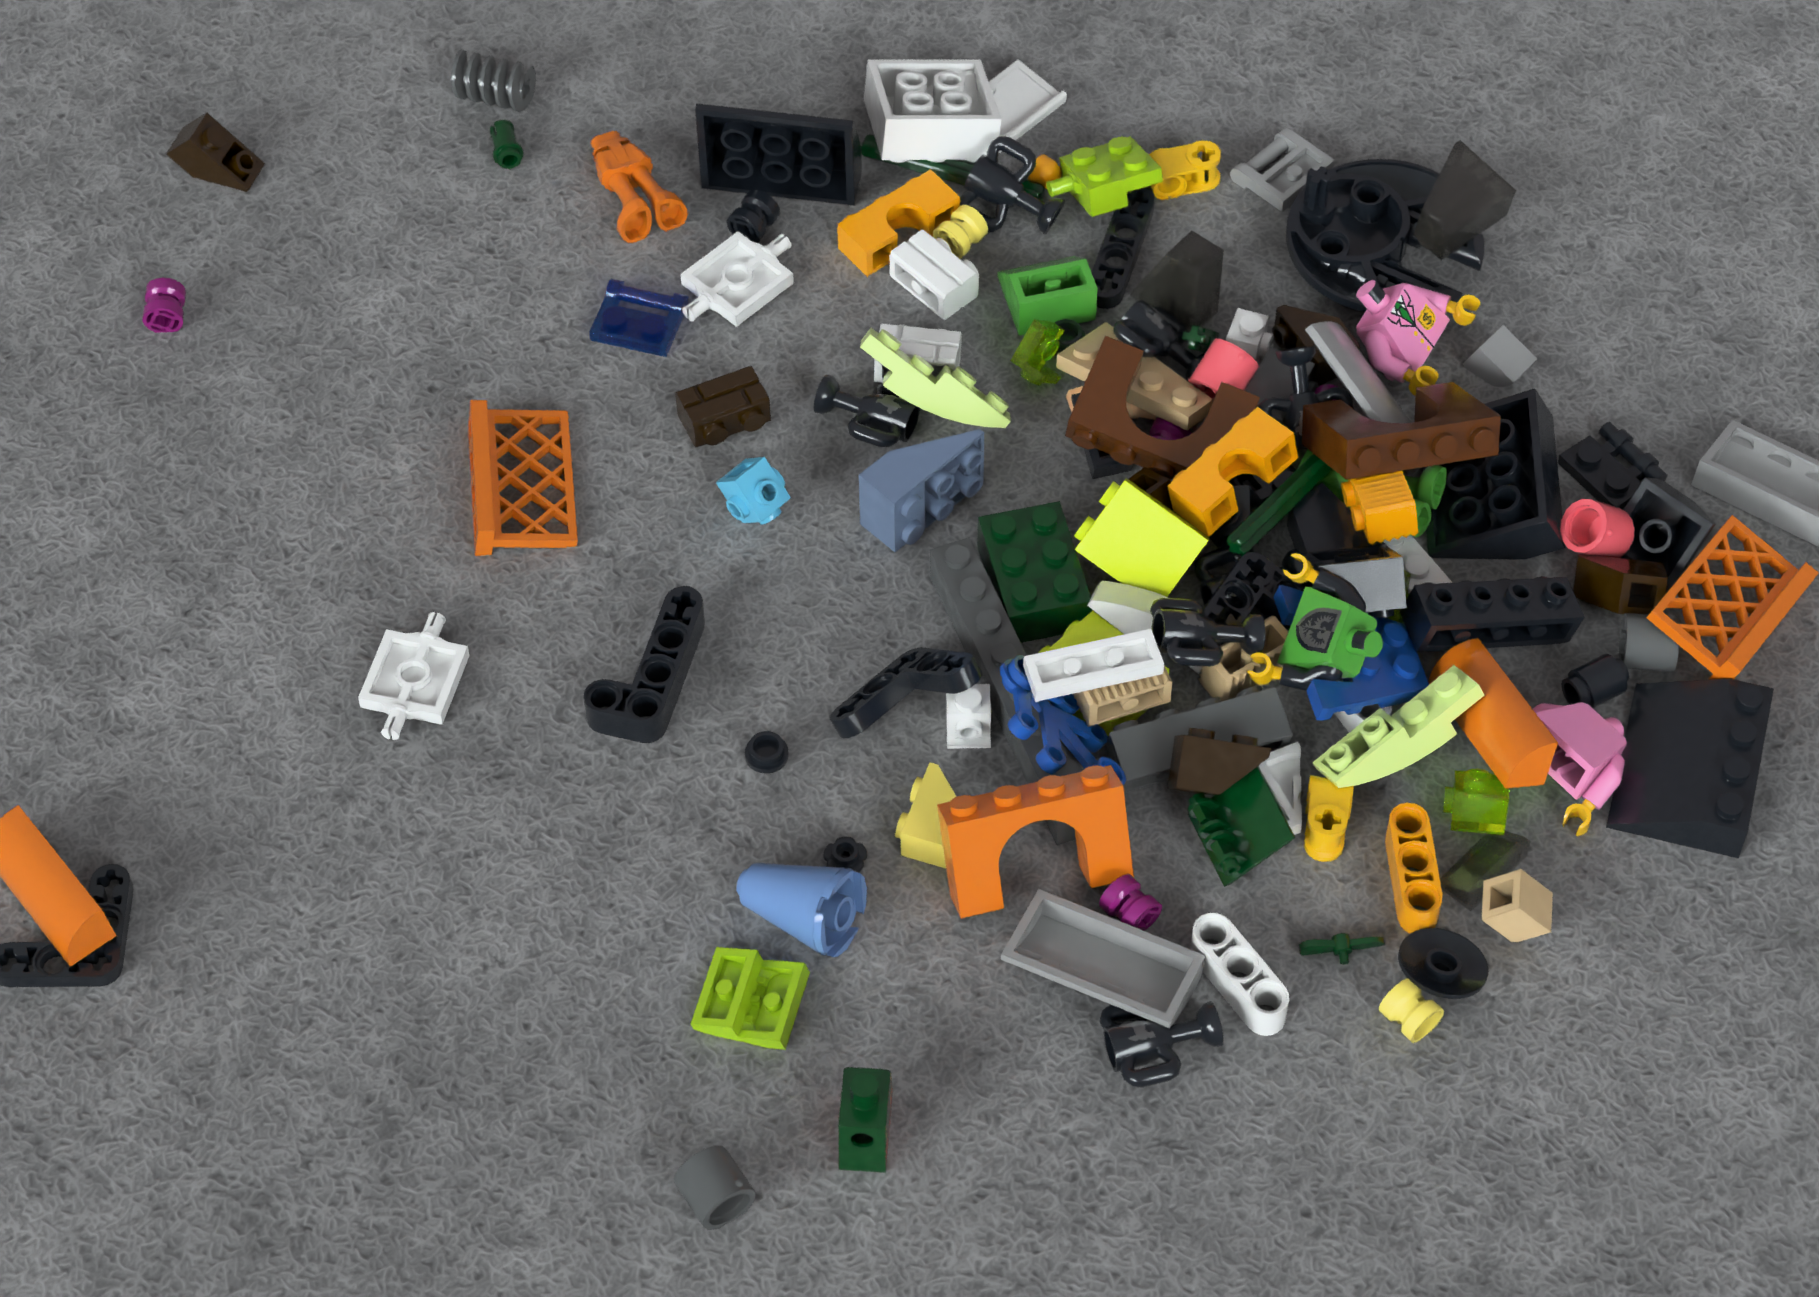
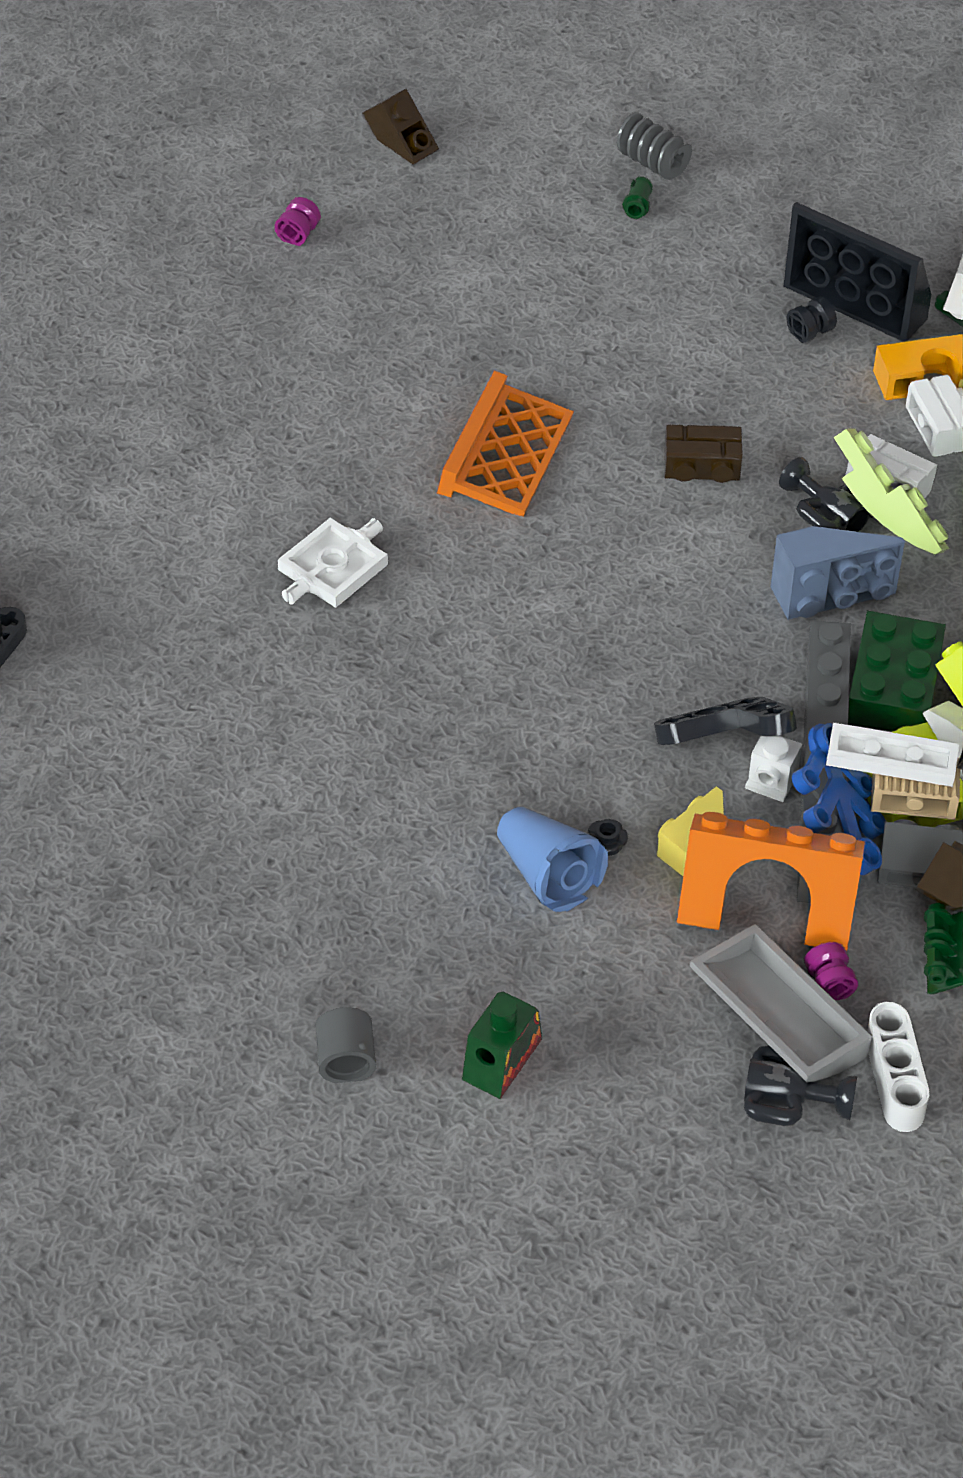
camera: 25 degrees right, 5 degrees down
(621, 169) = (720, 247): orange piece -> none
(637, 328) = (669, 372): clear blue plate -> none
(659, 663) = (511, 653): black beam -> none
(737, 278) = (771, 361): white plate -> none
(750, 998) = (464, 914): lime slope -> none
(754, 491) = (690, 524): medium azure brick -> none
(766, 752) = (587, 729): black plate -> none

